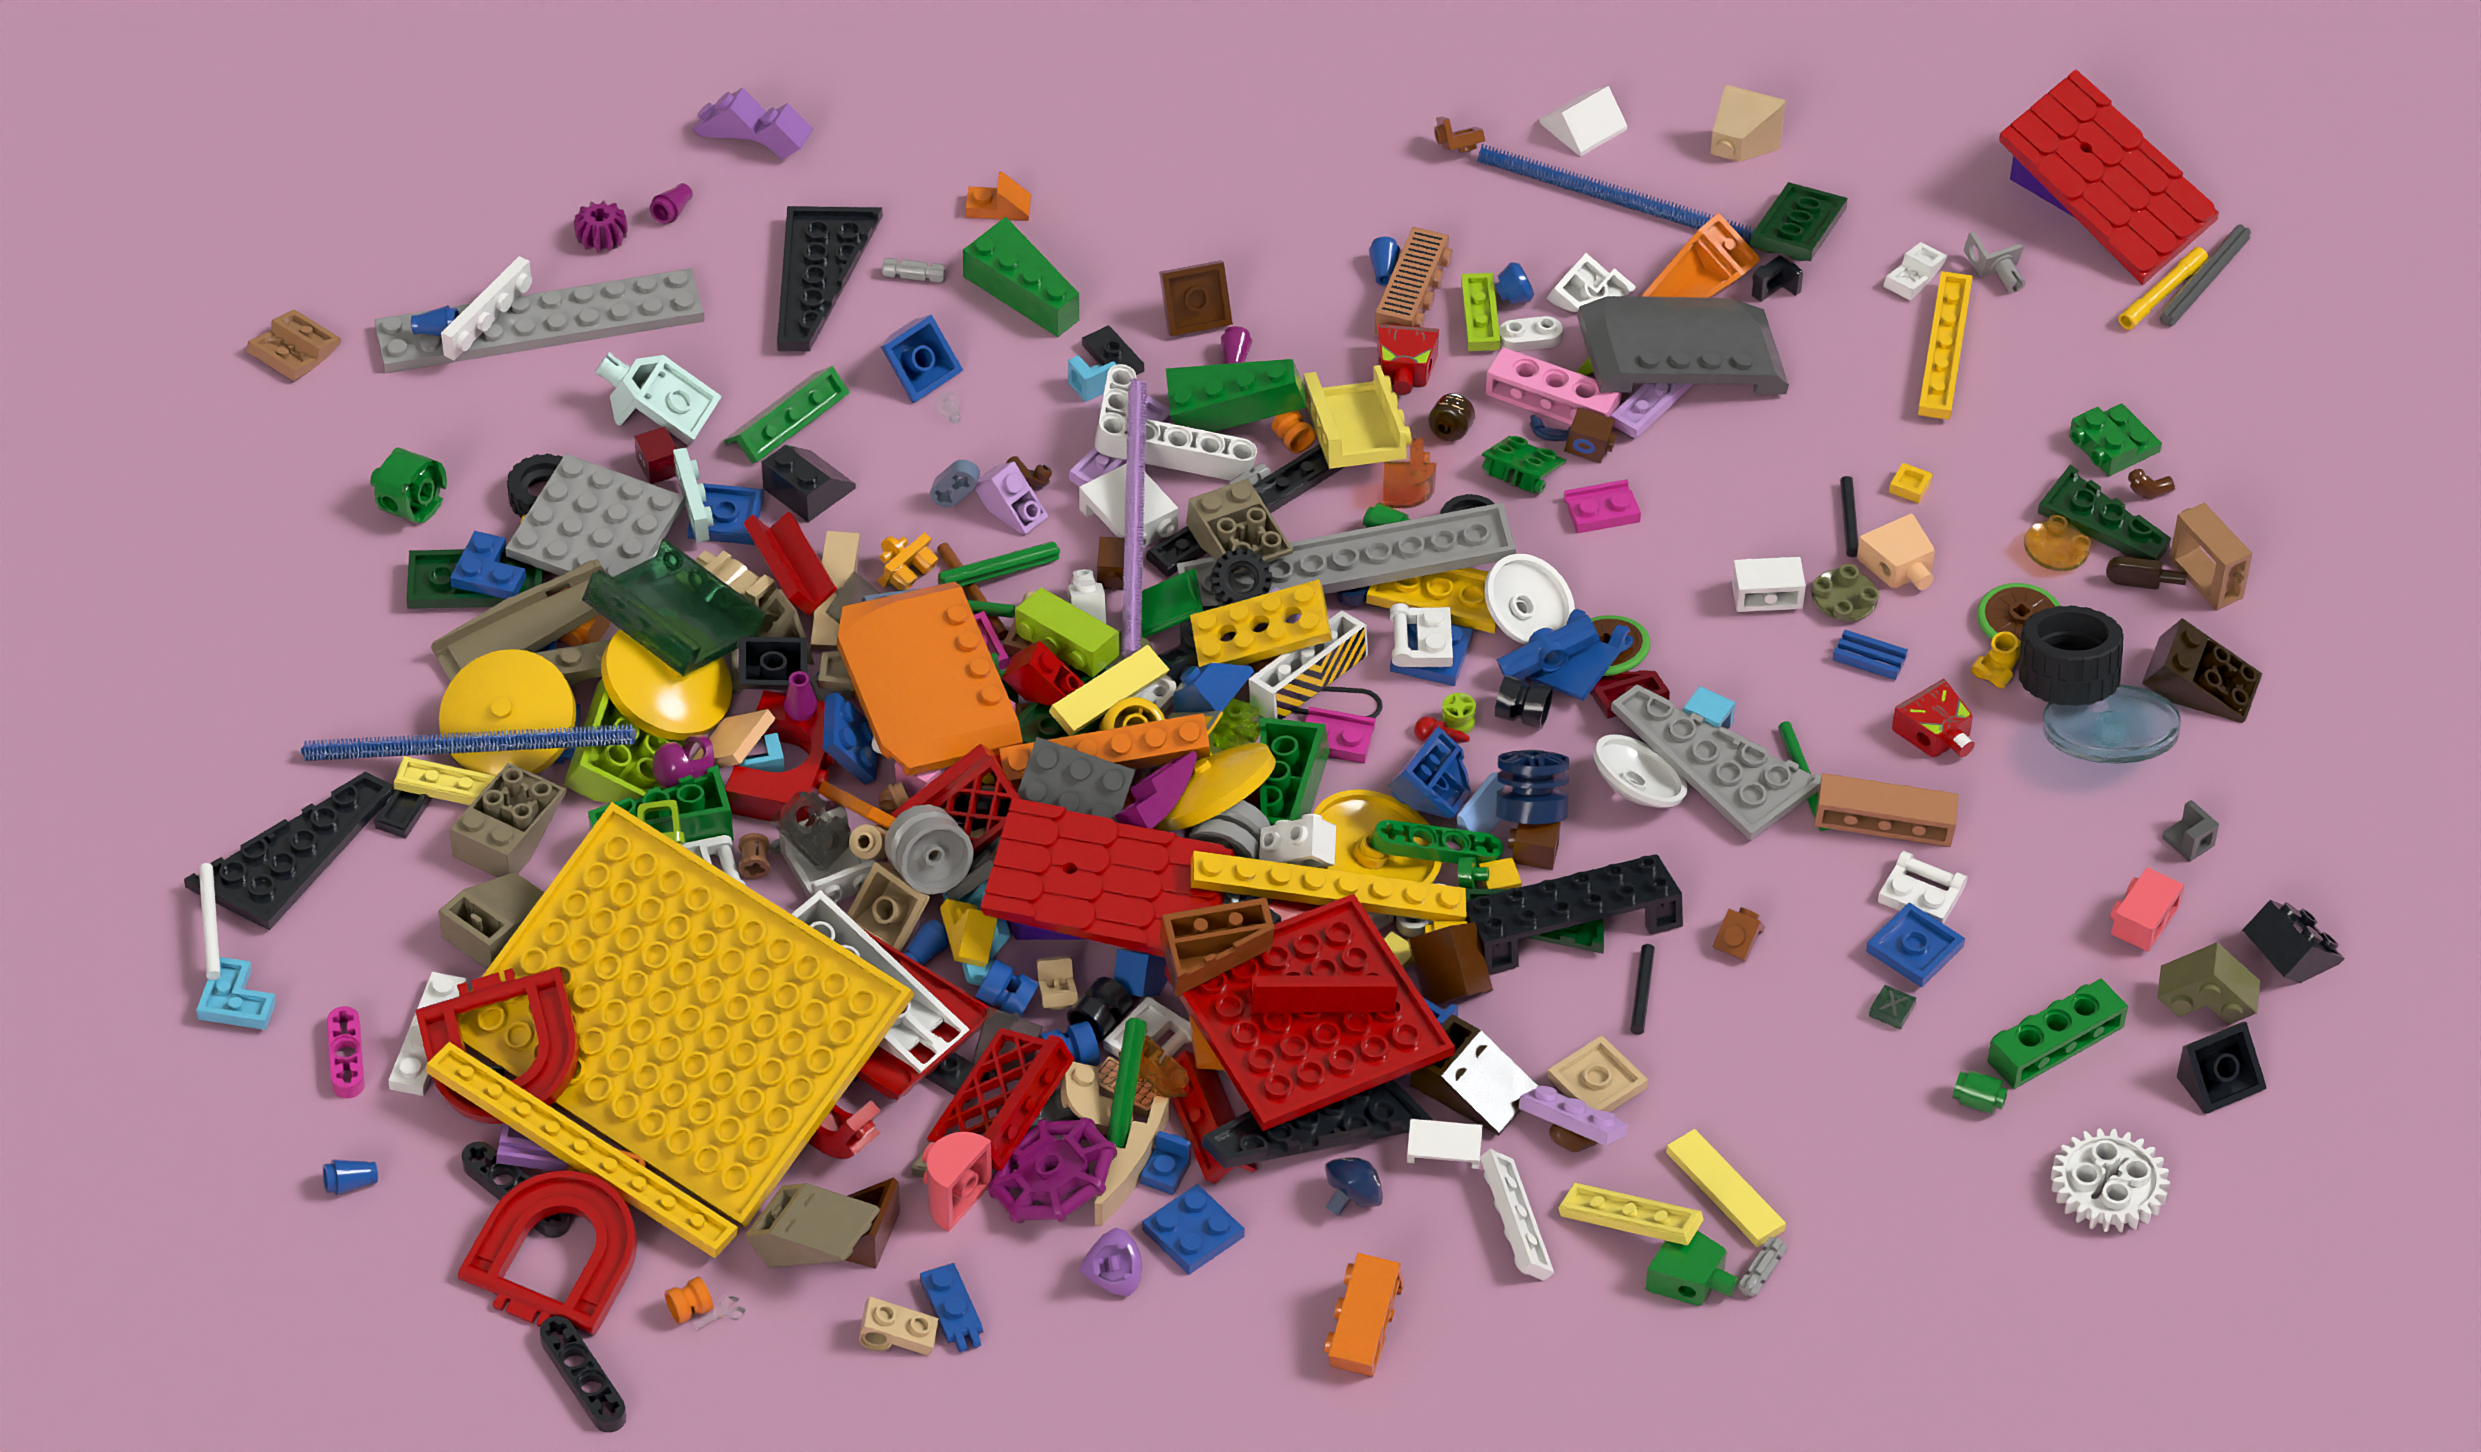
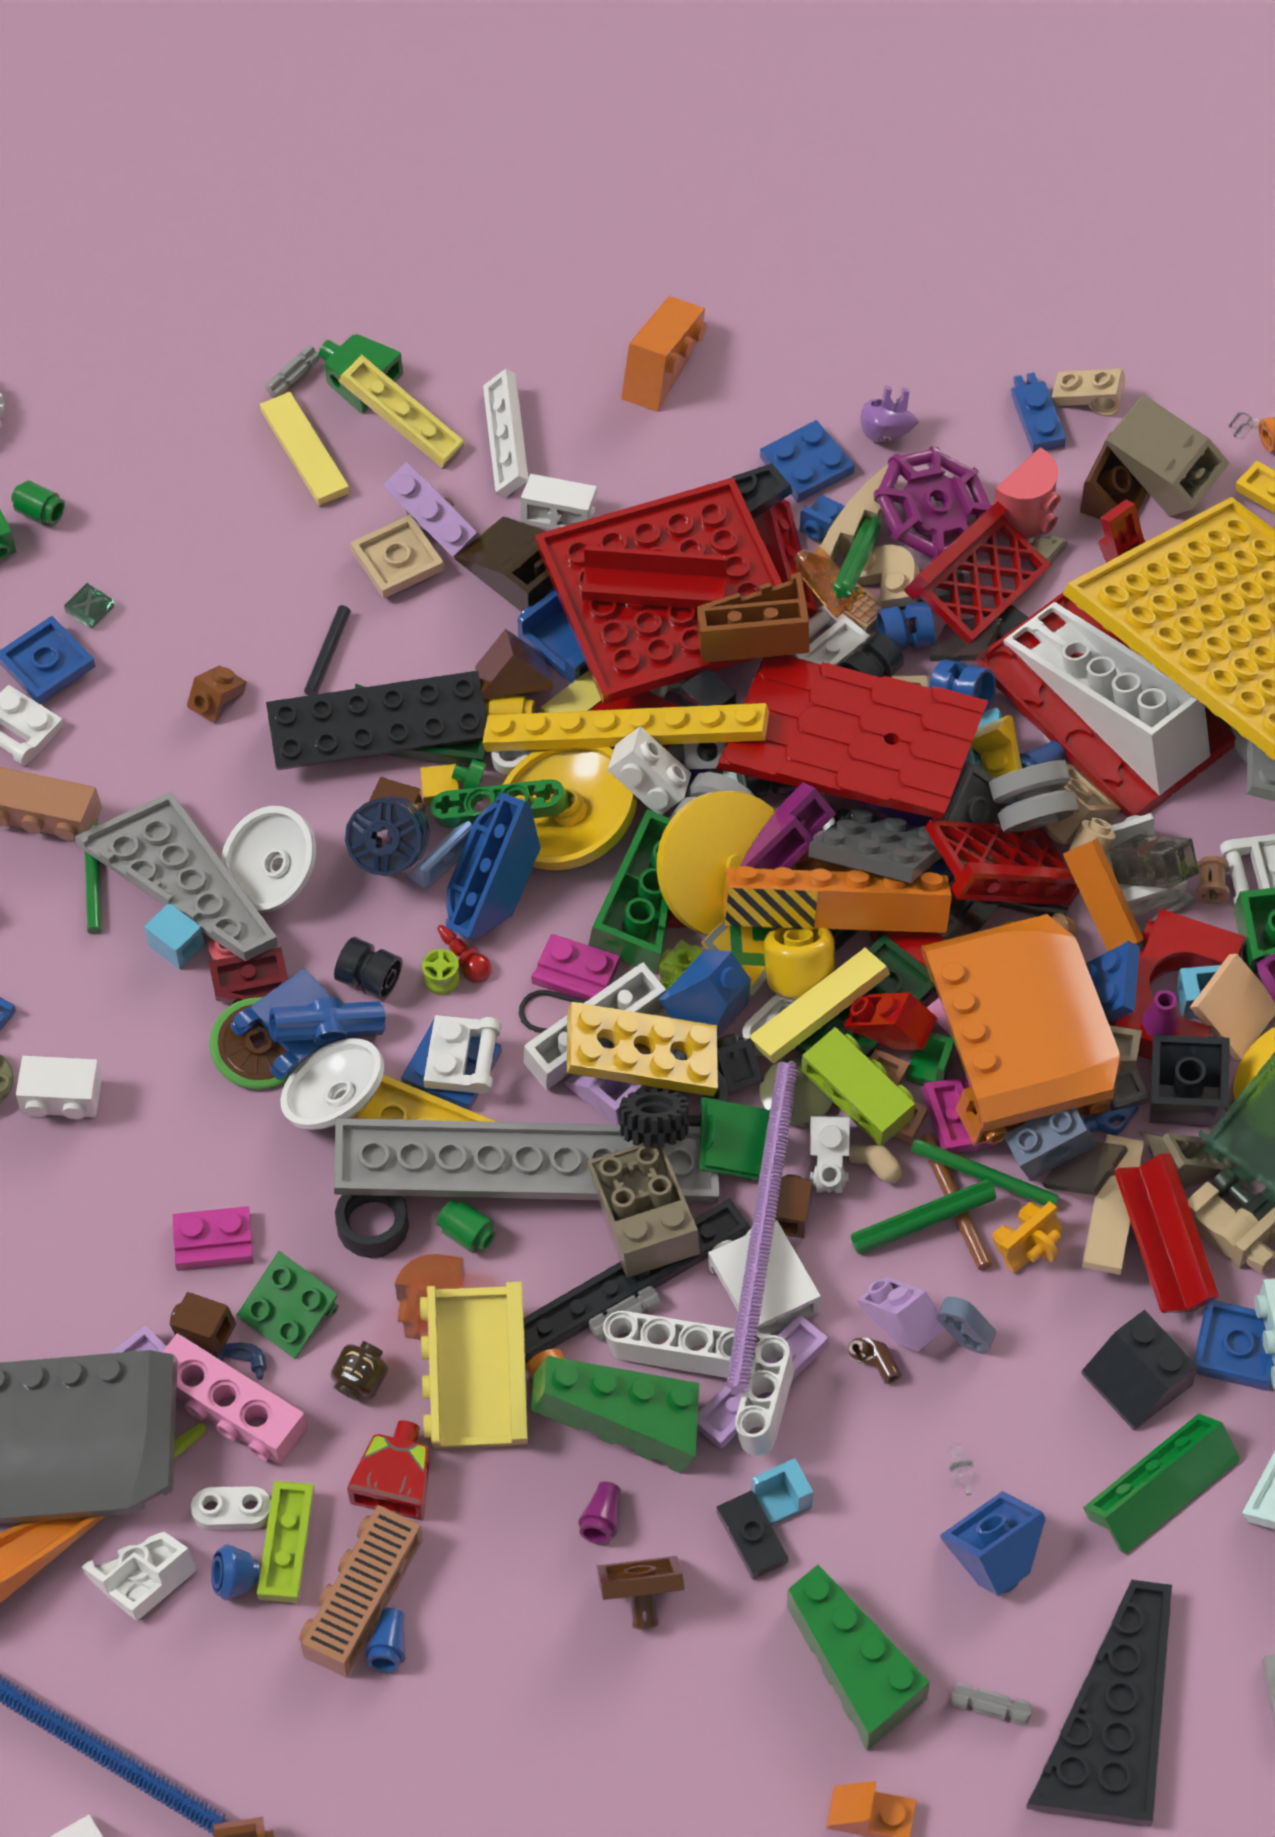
camera: 170 degrees left, 10 degrees up
(1353, 1180) = (653, 466): dark blue piece -> none

